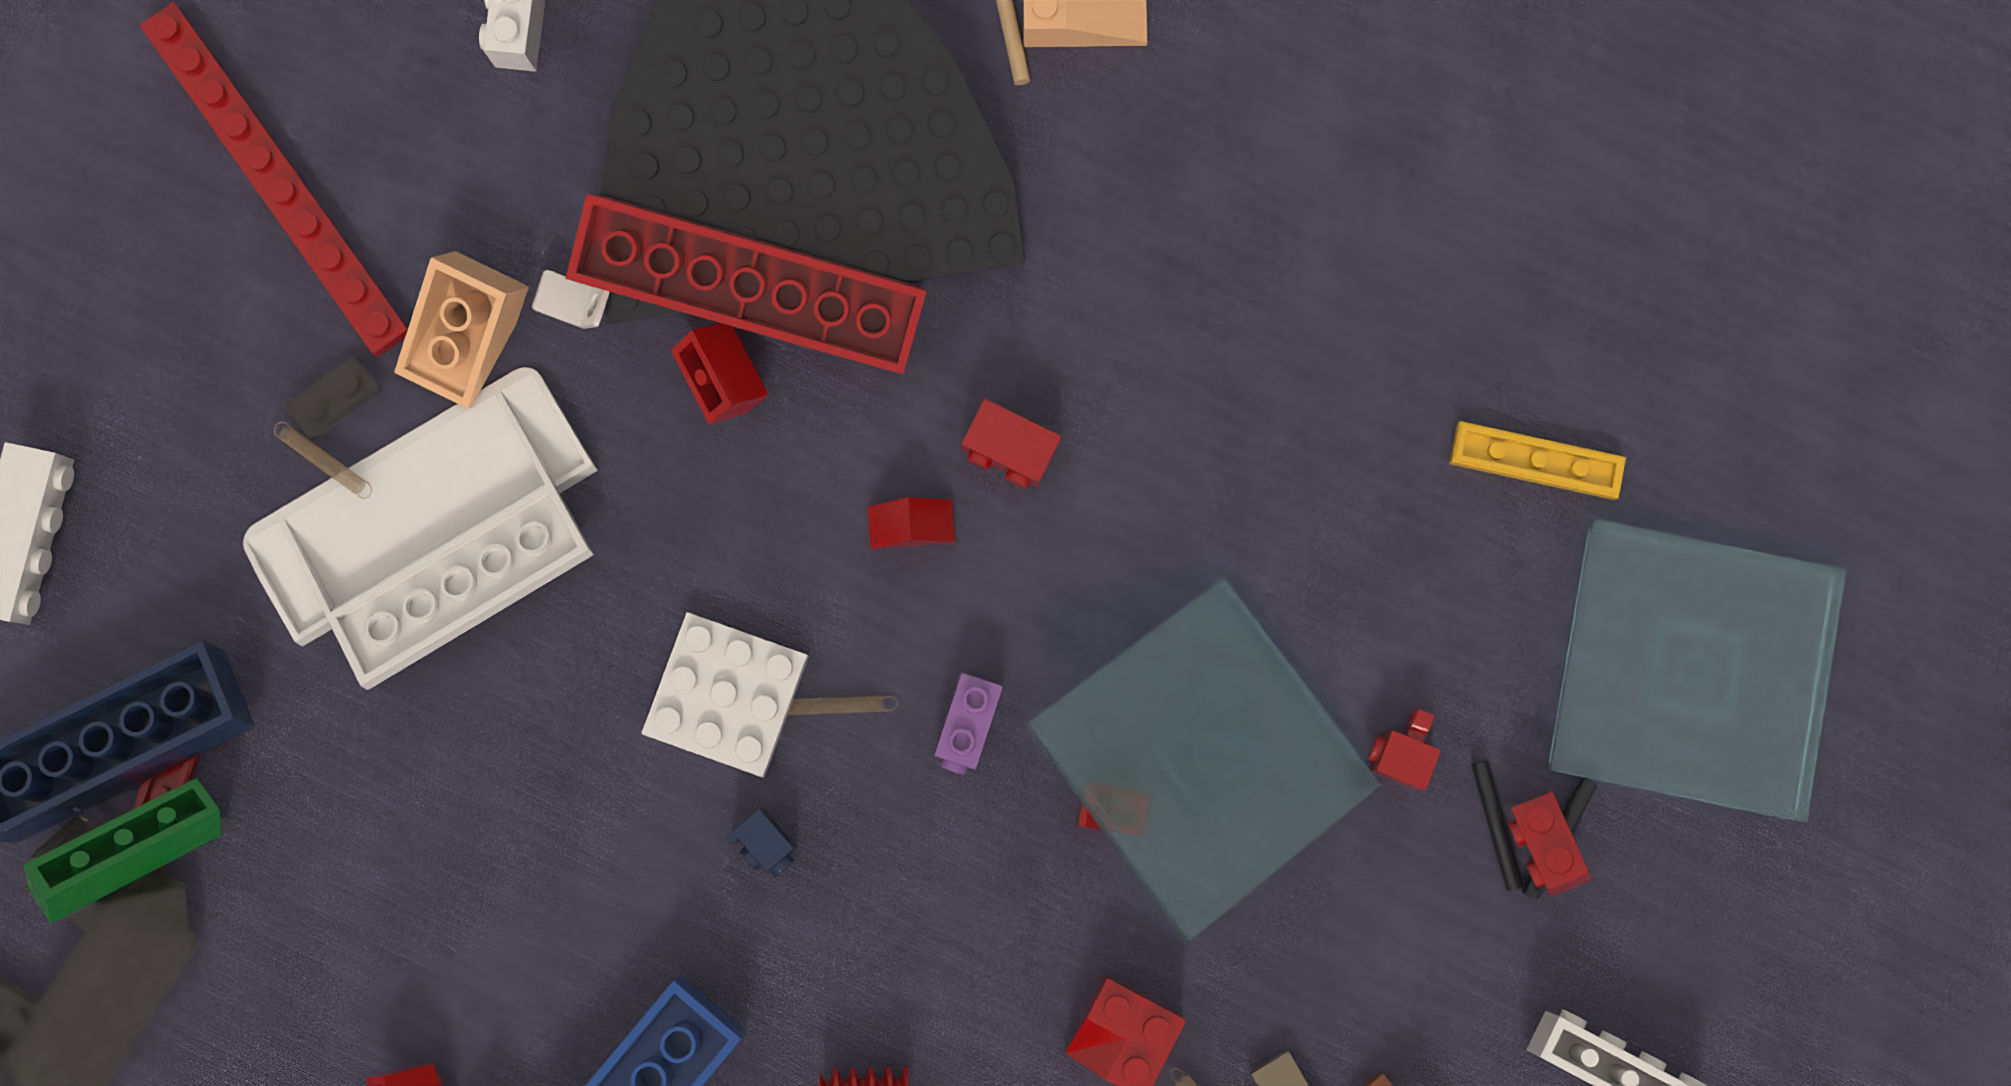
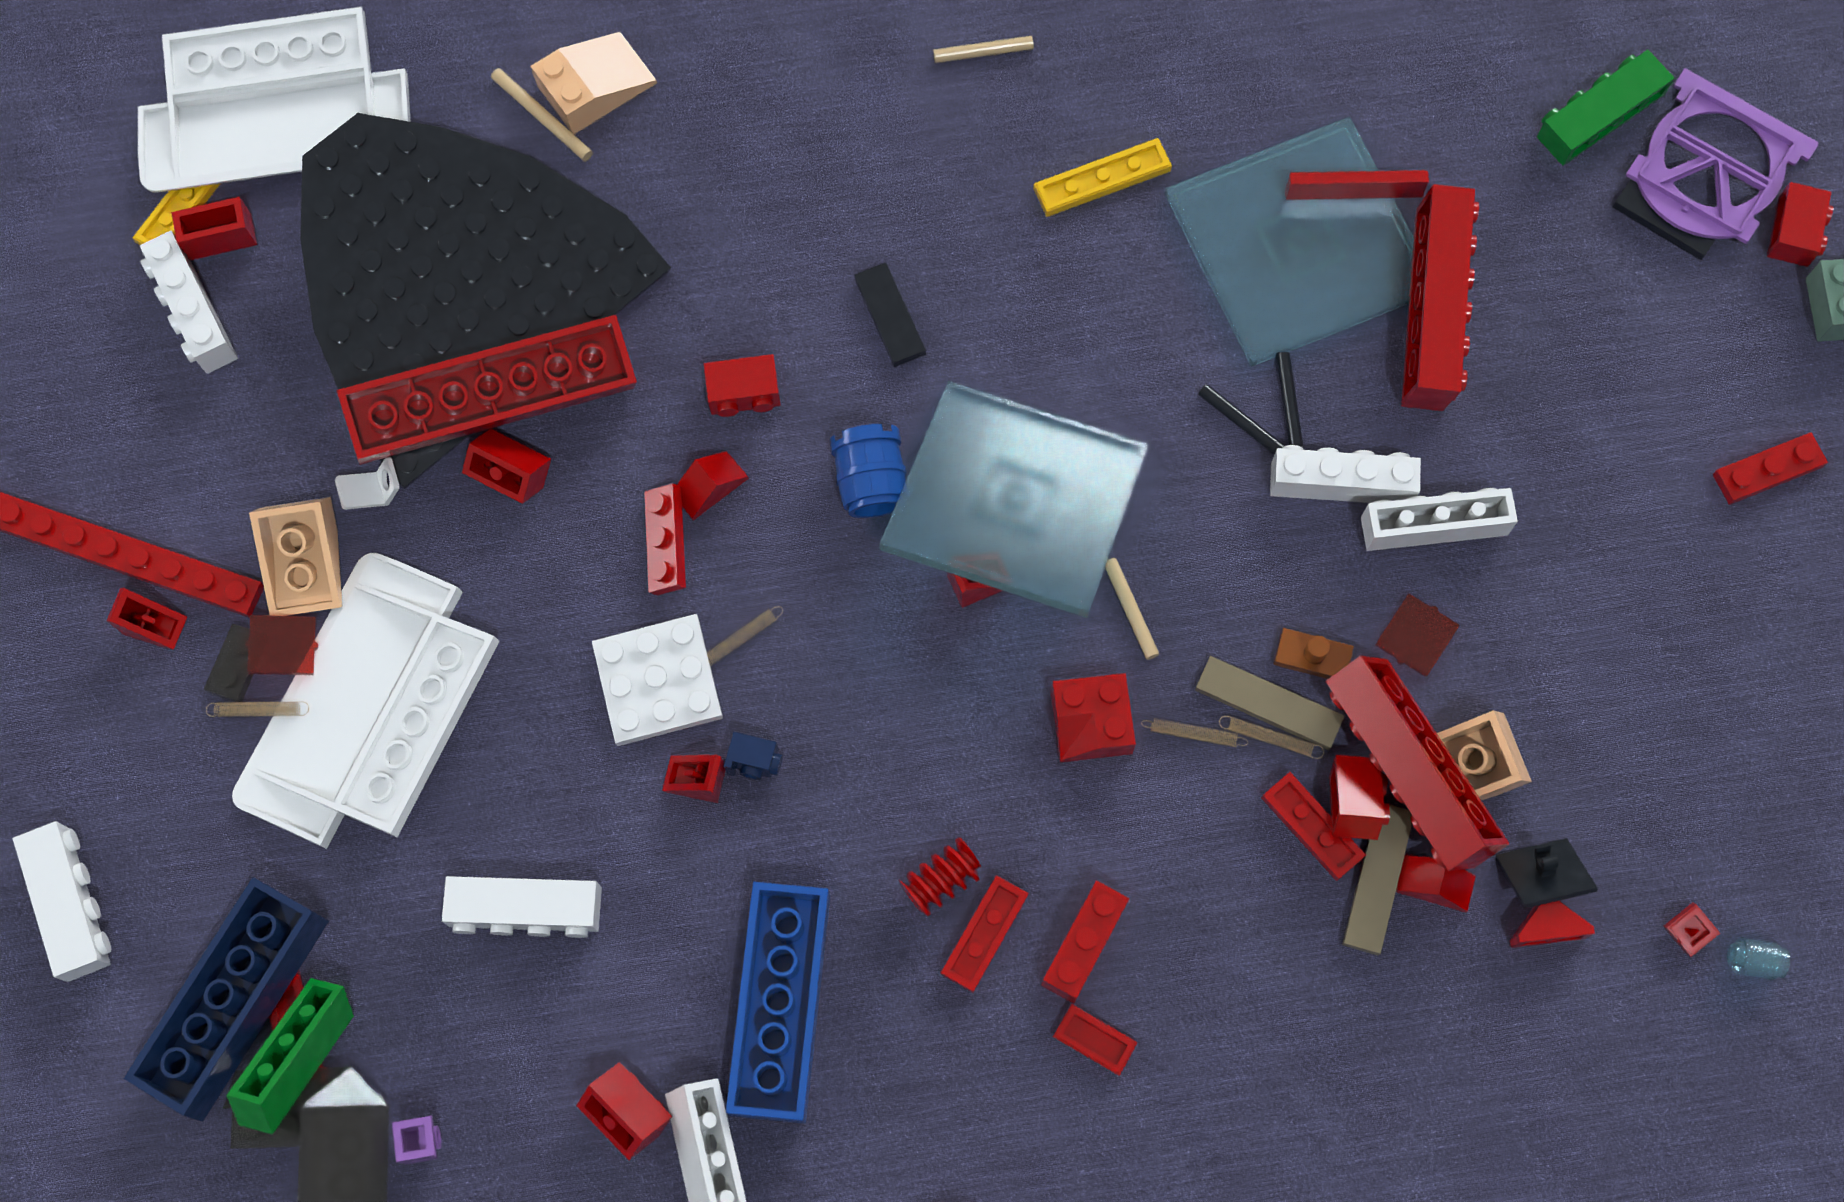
camera: 30 degrees left, 10 degrees down
(195, 1006) = (416, 1140): none -> medium lavender brick
(272, 295) = (146, 619): none -> red slope
(385, 410) = (281, 645): none -> clear red piece
(443, 841) = (522, 905): none -> white brick
(694, 822) = (695, 776): none -> red slope
(827, 554) = (665, 539): none -> plate
(968, 724) = (840, 585): medium lavender brick -> none
(1076, 627) = (869, 469): none -> blue piece
(1214, 464) = (890, 314): none -> black tile
(1243, 949) = (1131, 609): none -> tan bar
(1405, 756) = (1150, 414): red brick -> none
(1510, 233) = (983, 49): none -> tan bar
(1551, 844) = (1284, 403): red brick -> none
(1569, 969) = (1343, 476): none -> white brick
(1796, 844) = (1439, 298): none -> red brick
(1798, 656) = (1356, 184): none -> red tile

